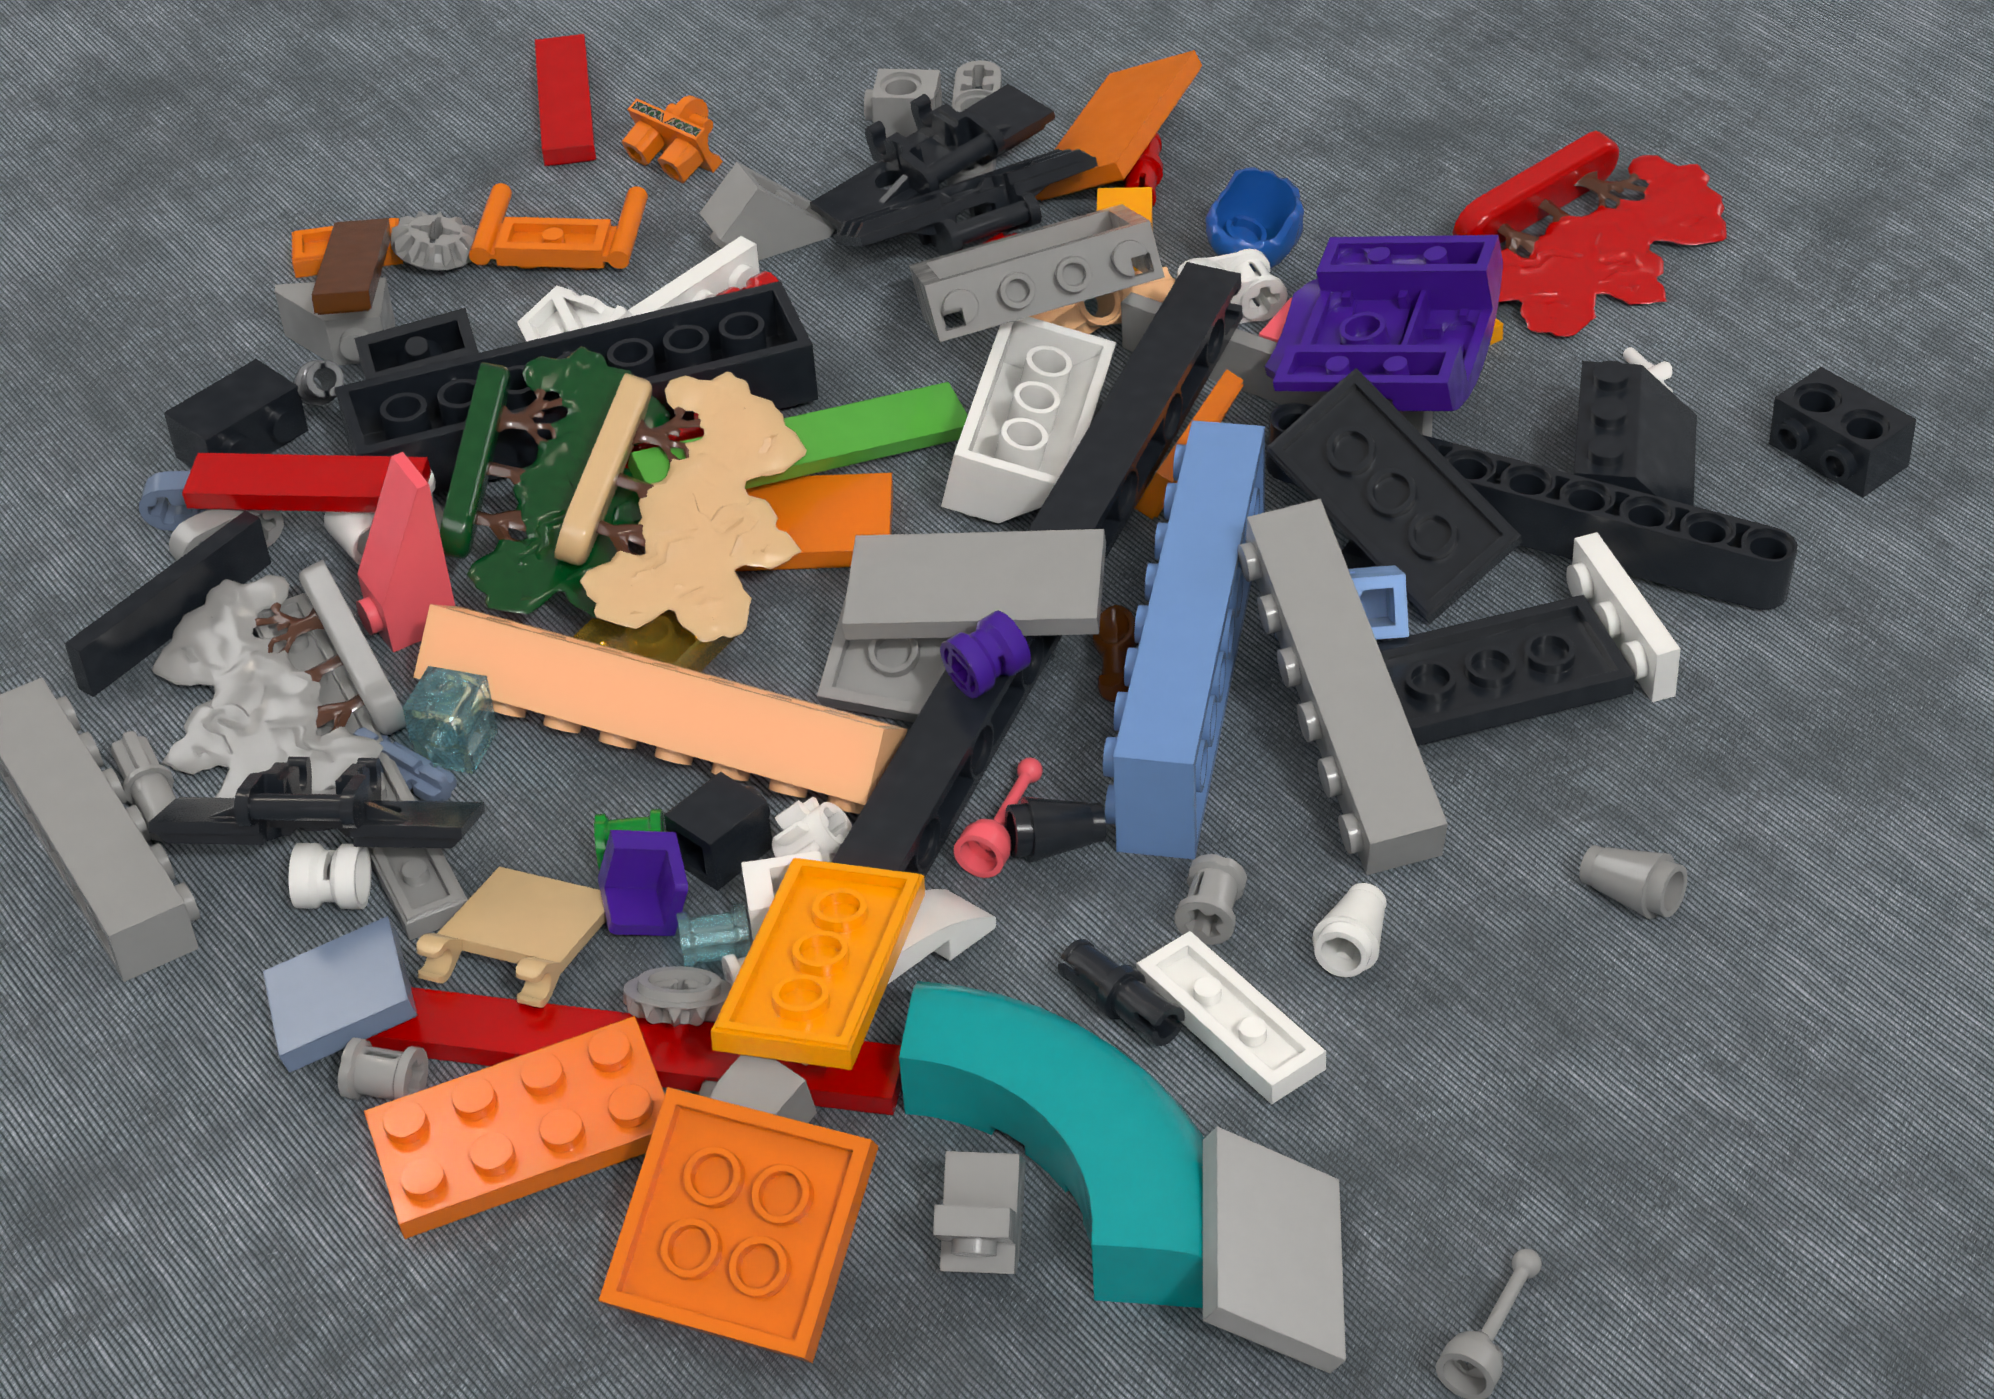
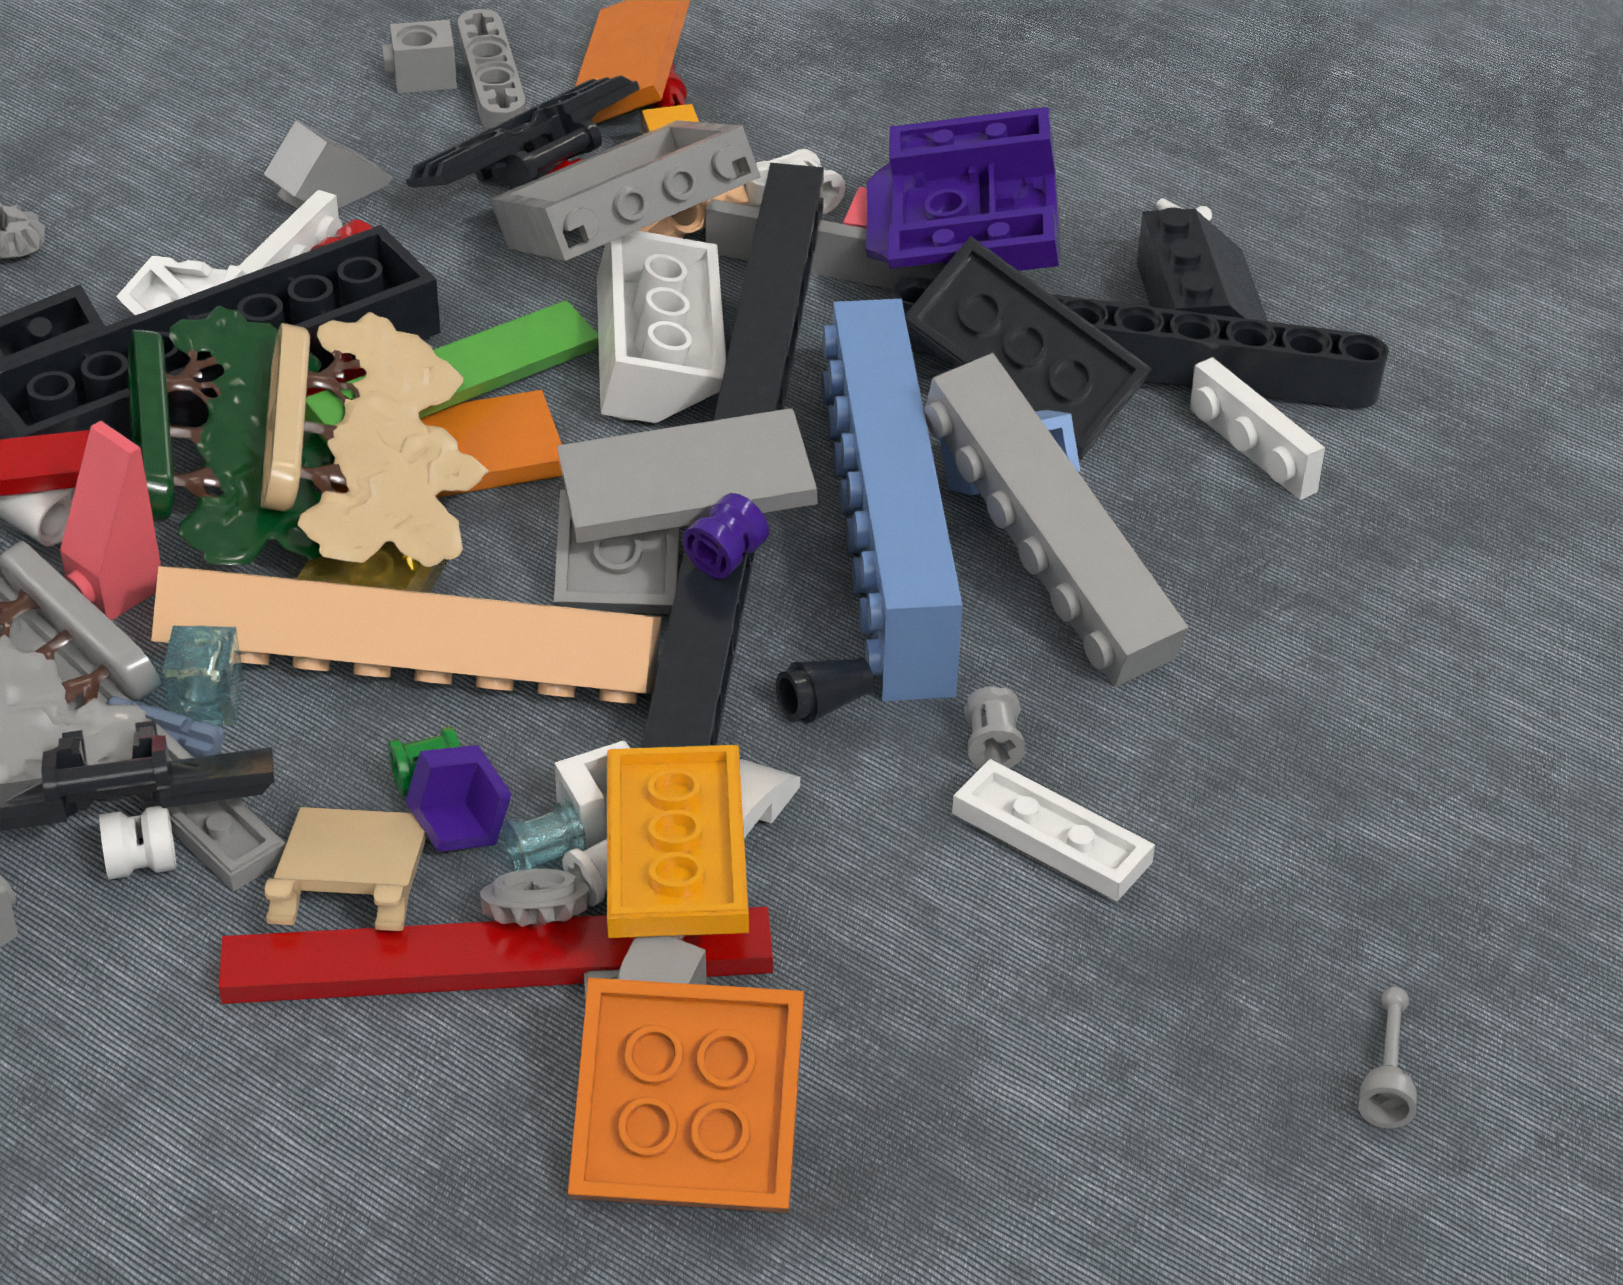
camera: 20 degrees left, 0 degrees up
(339, 993) = (193, 952): tile -> none
(381, 1071) = (266, 1019): light grey bush -> none
(517, 1126) = (424, 1046): orange plate -> none
(555, 241) = (123, 217): orange plate -> none
(564, 100) = (78, 86): red tile -> none
(677, 131) = (205, 102): orange hips -> none
(720, 829) = (515, 734): black brick -> none
(810, 829) = (604, 723): white gear -> none
(939, 149) = (469, 96): black piece -> none
(981, 1212) = (904, 1043): light grey brick -> none
(986, 842) = (759, 710): coral hinge -> none
(1083, 1119) = (973, 949): teal brick -> none
(1112, 643) = (812, 520): reddish brown piece -> none
(1121, 992) = (945, 824): black pin -> none
(1212, 410) = (816, 313): orange tile -> none
(1257, 214) = (795, 117): blue hair -> none
(1272, 1251) = (1182, 1028): light grey tile -> none
(1351, 932) = (1130, 738): white cone -> none
(1505, 669) = (1182, 483): black plate -> none
(1594, 251) = (1103, 115): red plant -> none
(1638, 879) = (1355, 651): light grey cone -> none
(1842, 431) = (1374, 247): black brick -> none

